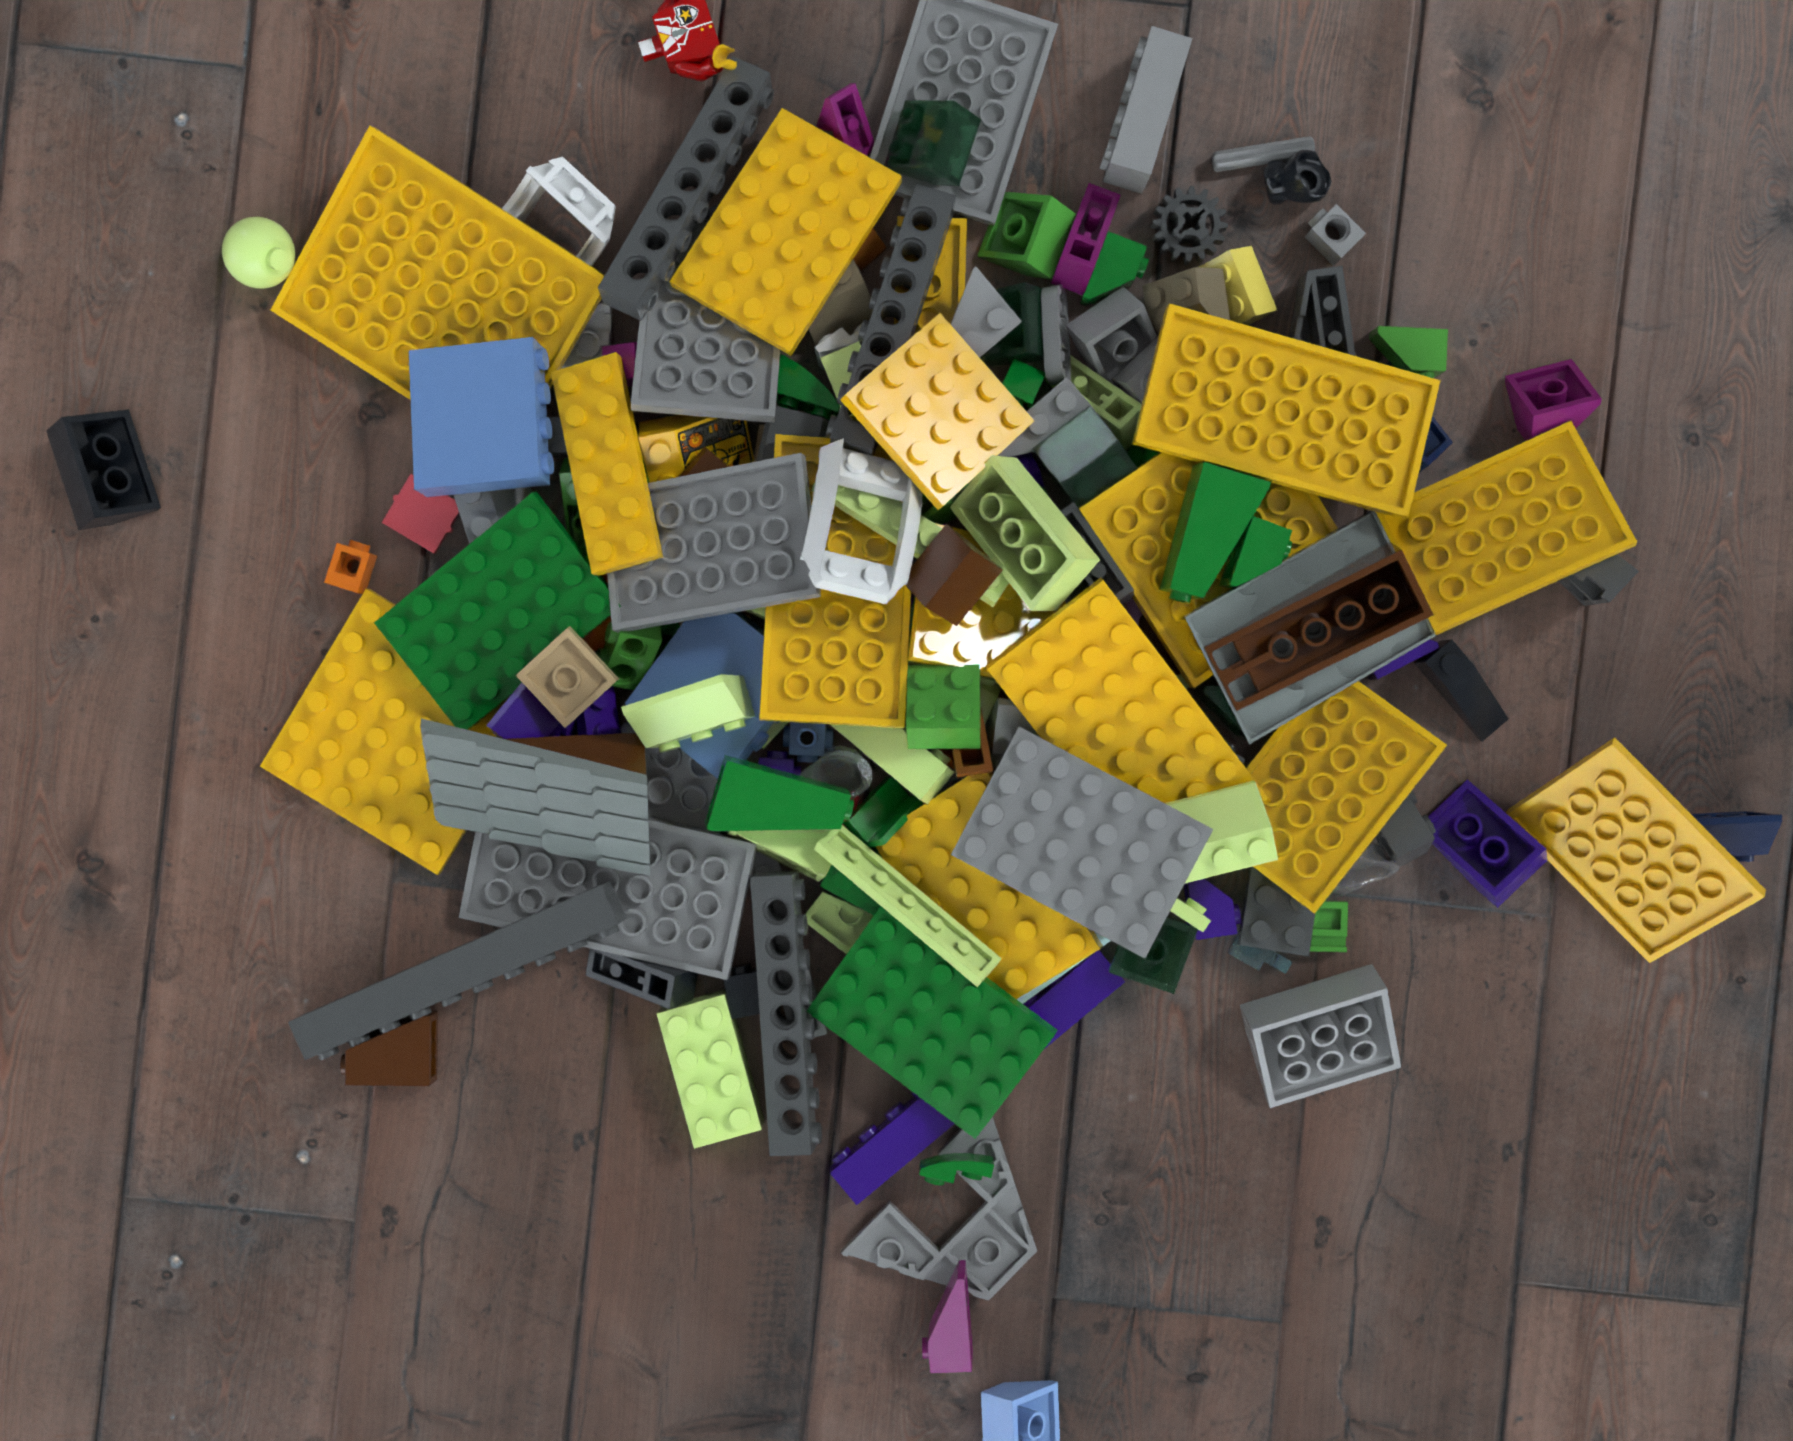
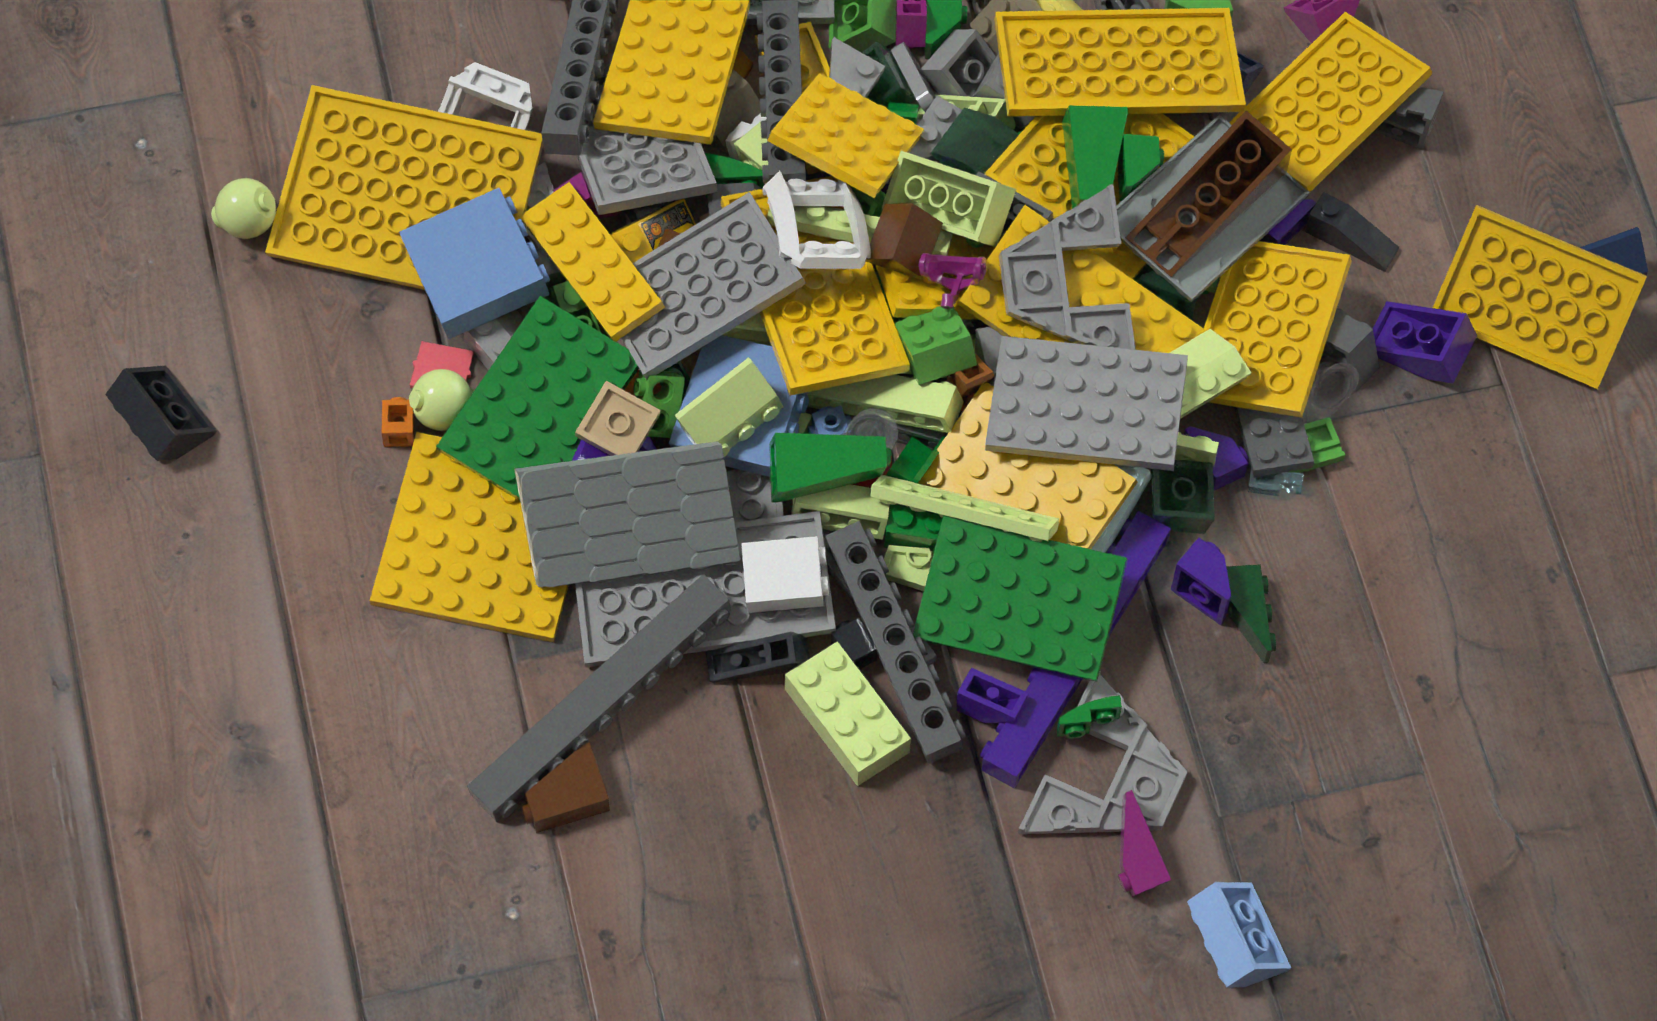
camera: 25 degrees left, 25 degrees down
(400, 561) = (439, 398): none -> yellowish green brick
(689, 909) = (784, 574): none -> white brick
(863, 1111) = (989, 698): none -> dark purple slope
(971, 620) = (934, 266): none -> magenta helmet
(1082, 674) = (1037, 282): none -> light grey wing
(1139, 1051) = (1203, 580): none -> dark purple slope
(1173, 1079) = (1249, 608): none -> dark green slope
(1322, 1035) = (1354, 527): light grey slope -> none

